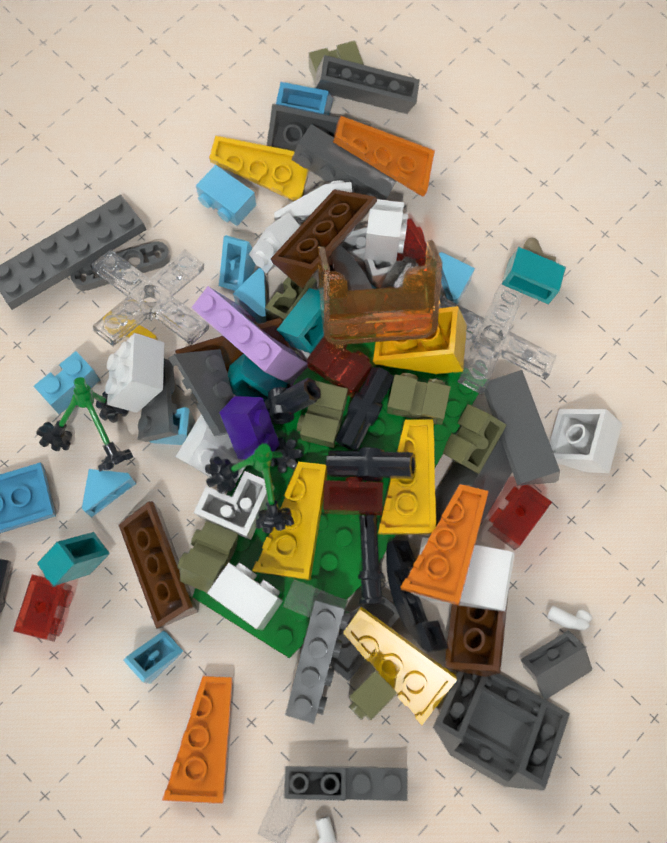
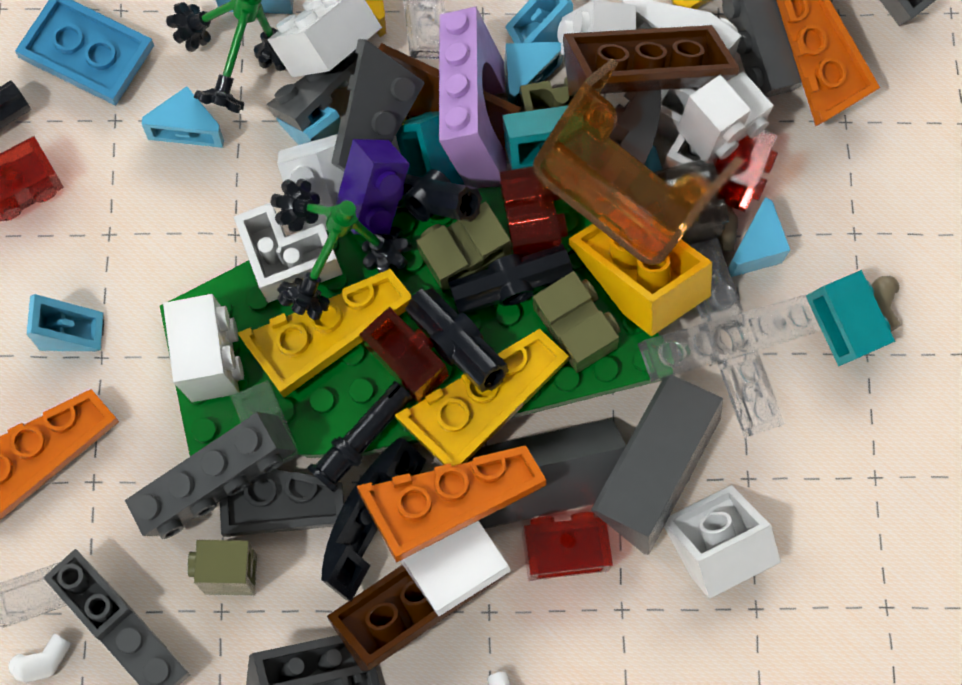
camera: 40 degrees right, 0 degrees up
(73, 558) = (84, 156): teal brick -> none
(157, 566) = (160, 244): reddish brown slope -> none
(209, 556) = (218, 270): olive brick -> none
(406, 668) = (289, 584): yellow wing -> none
(475, 438) = (595, 422): olive brick -> none

